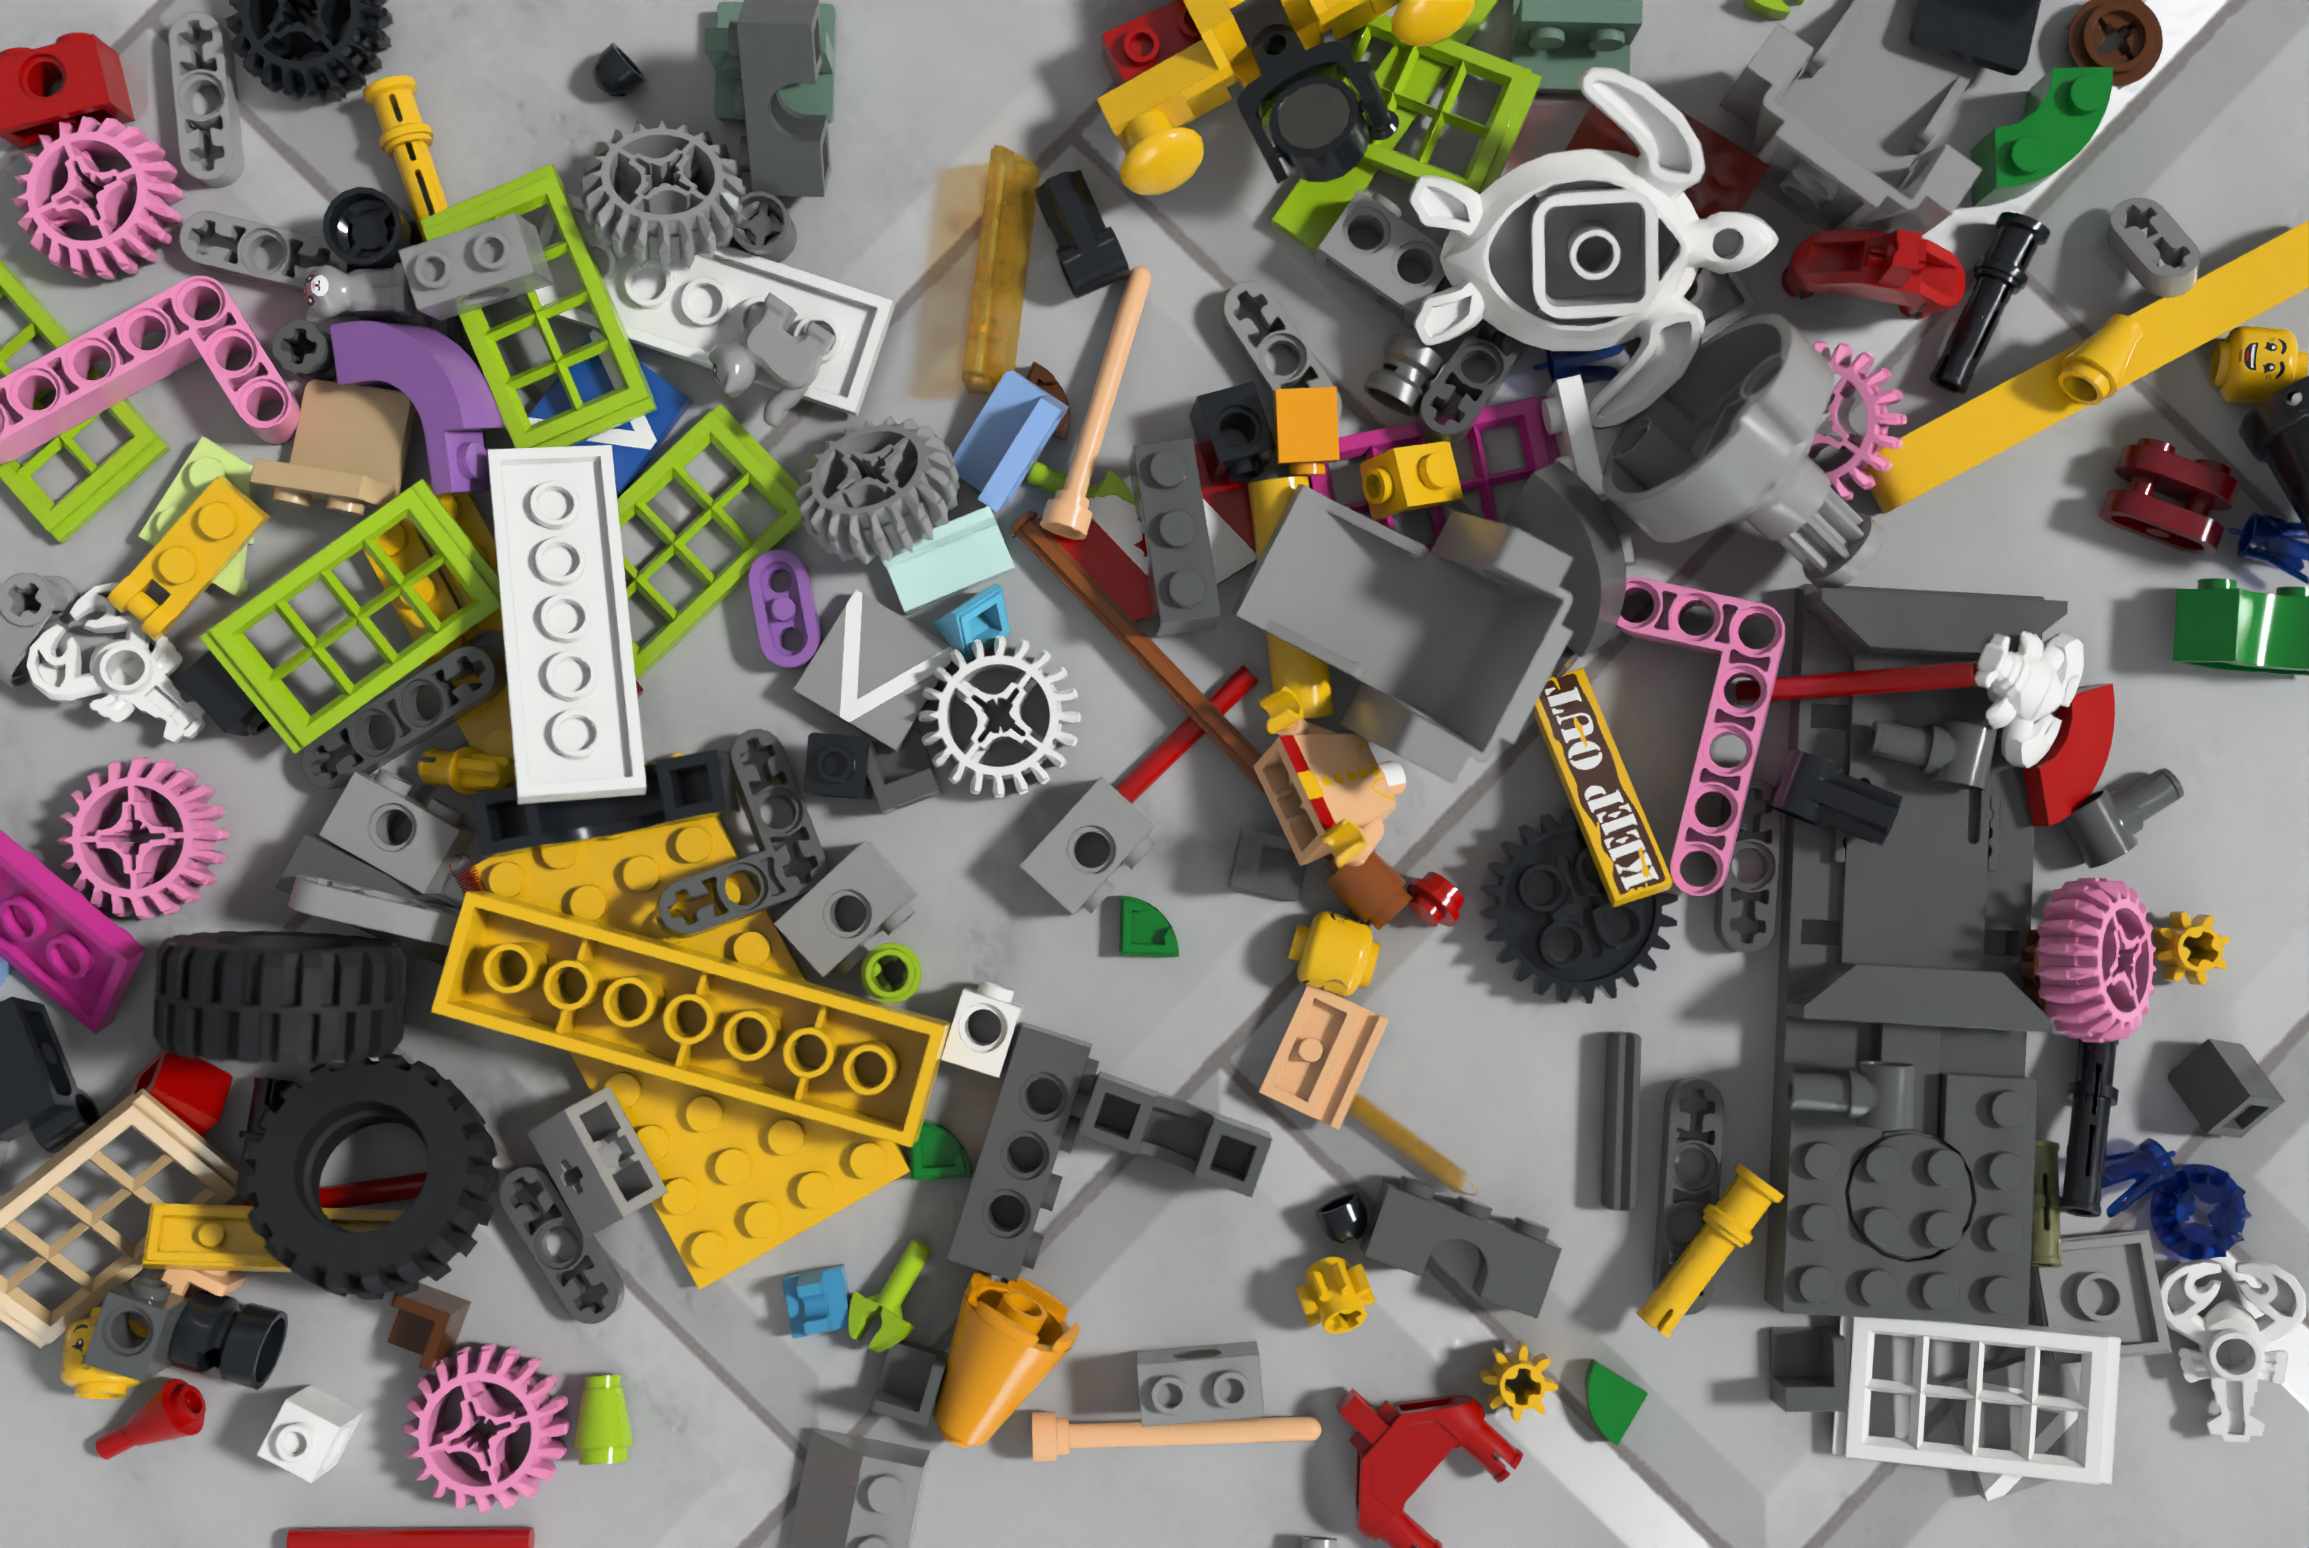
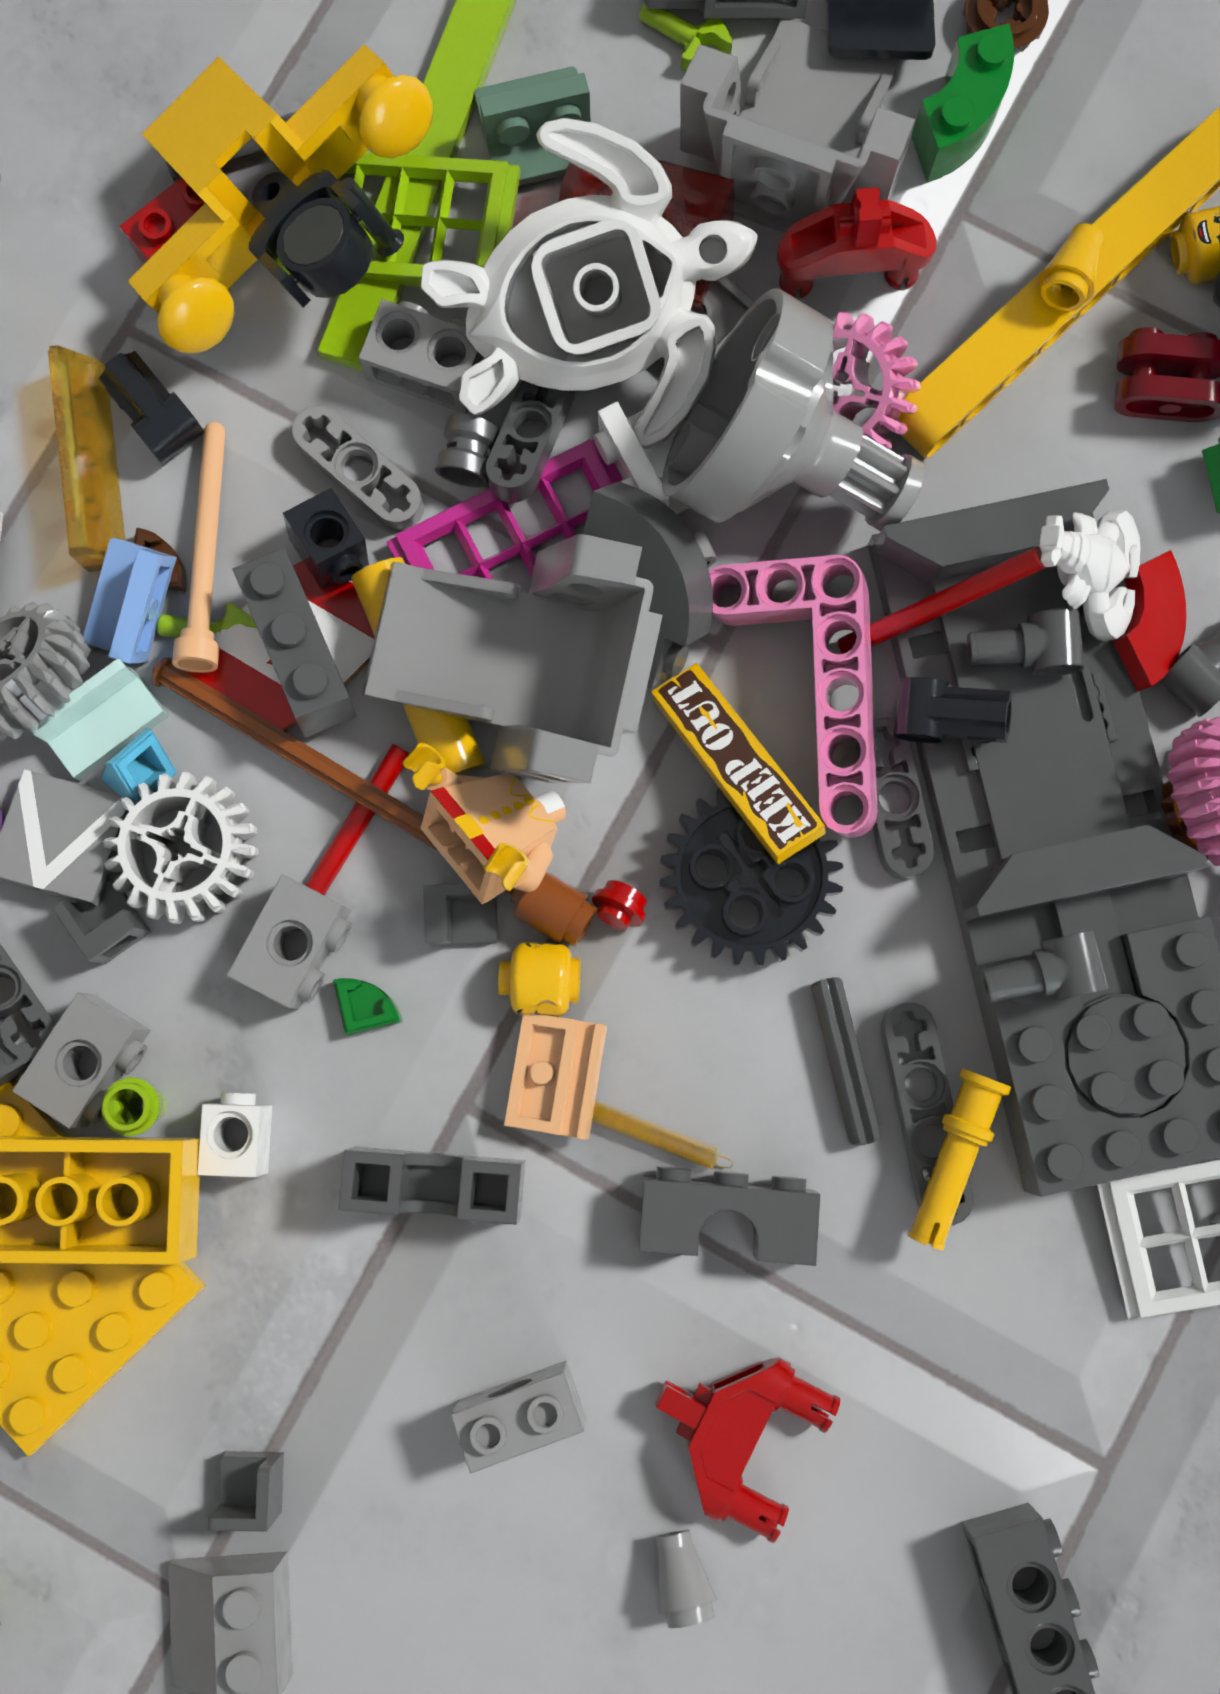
camera: 10 degrees left, 5 degrees down
(817, 1300) = (145, 1436): dark azure tile -> none
(837, 766) = (38, 932): black bracket -> none
(888, 1301) = (209, 1421): lime bar -> none
(938, 1155) = (223, 1265): green tile -> none
(980, 1237) = (277, 1332): dark grey brick -> none
(998, 1355) = (321, 1440): light orange cone -> none
(1056, 1436) = (398, 1504): light nougat piece -> none
(1305, 429) = (387, 515): light orange brick -> none
(1335, 1295) = (624, 1296): yellow gear -> none
(1344, 1218) = (615, 1222): black hinge -> none
(1410, 479) = (495, 535): yellow bracket -> none
(1529, 1393) = (831, 1337): yellow gear -> none
(1572, 363) = (610, 394): clear blue piece -> none
(1611, 1400) = (909, 1324): green tile -> none
(1807, 1369) = (1081, 1244): dark grey panel -> none
(1997, 279) = (965, 231): black pin -> none
(2163, 240) = (1080, 160): light grey beam -> none

